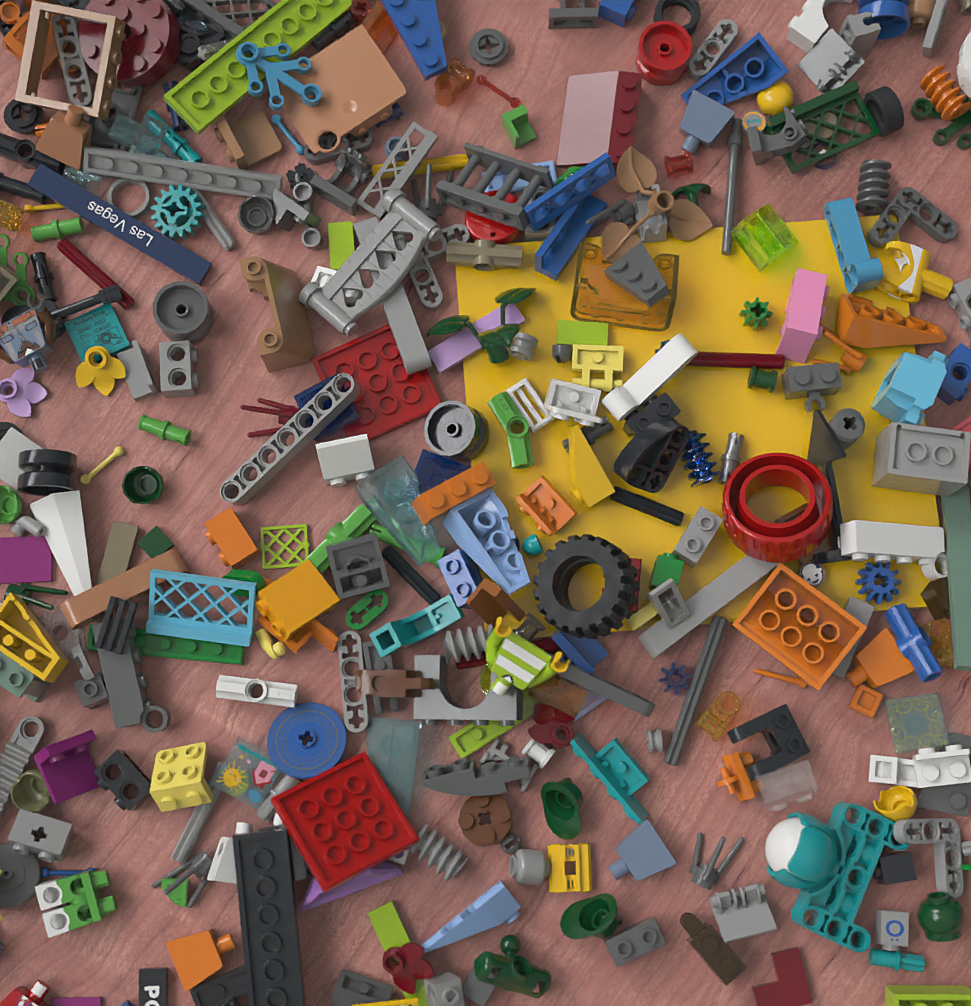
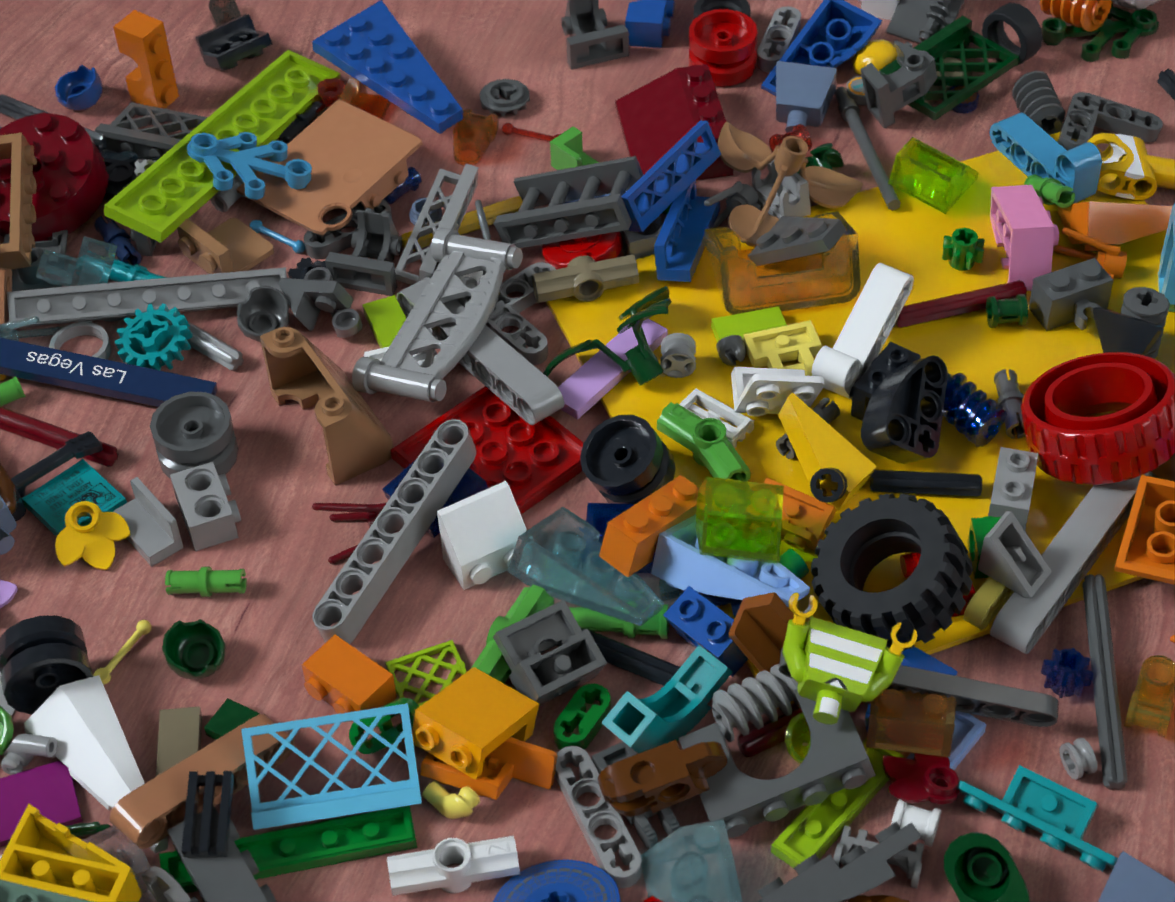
camera: 15 degrees left, 30 degrees down
(504, 518) = (739, 519): none -> clear neon green slope
(569, 500) = (821, 493): none -> black bush
(838, 282) = (1051, 191): none -> bright green pin

